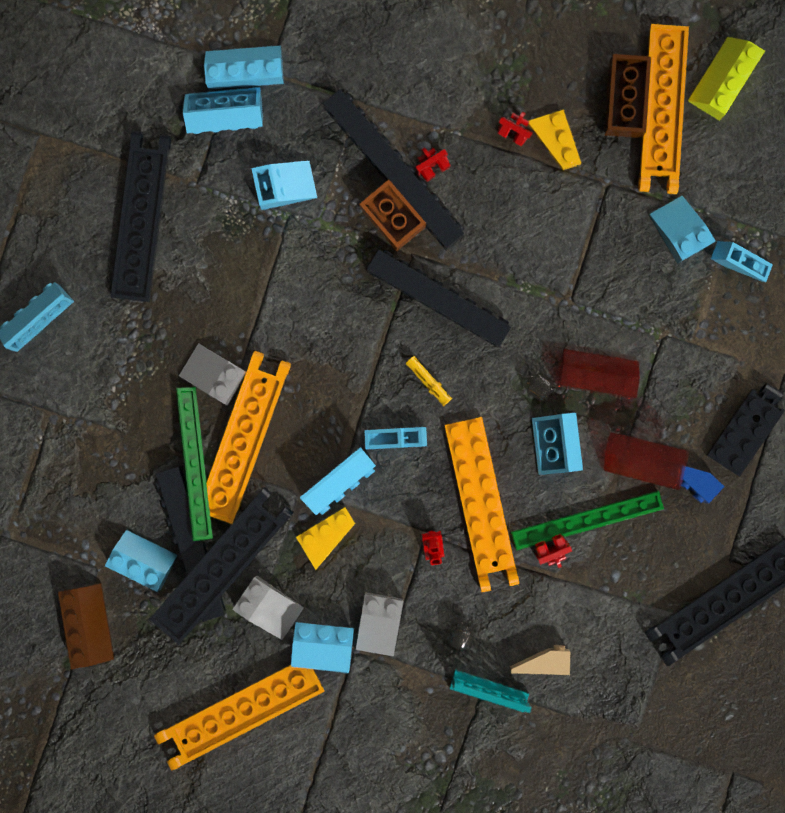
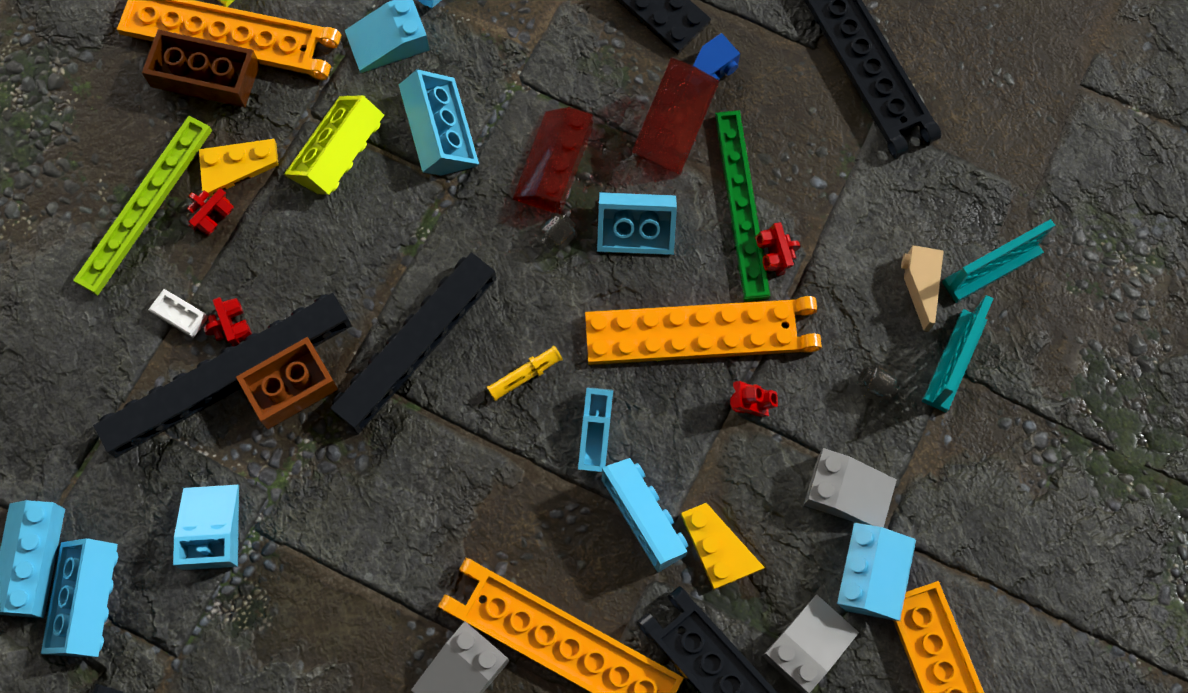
camera: 85 degrees left, 15 degrees down
(433, 126) = (178, 313): none -> white plate
(513, 80) = (142, 205): none -> lime plate
(568, 715) = (997, 263): none -> teal fence
(584, 209) = (335, 144): none -> neon yellow slope
(614, 282) = (438, 123): none -> medium azure slope

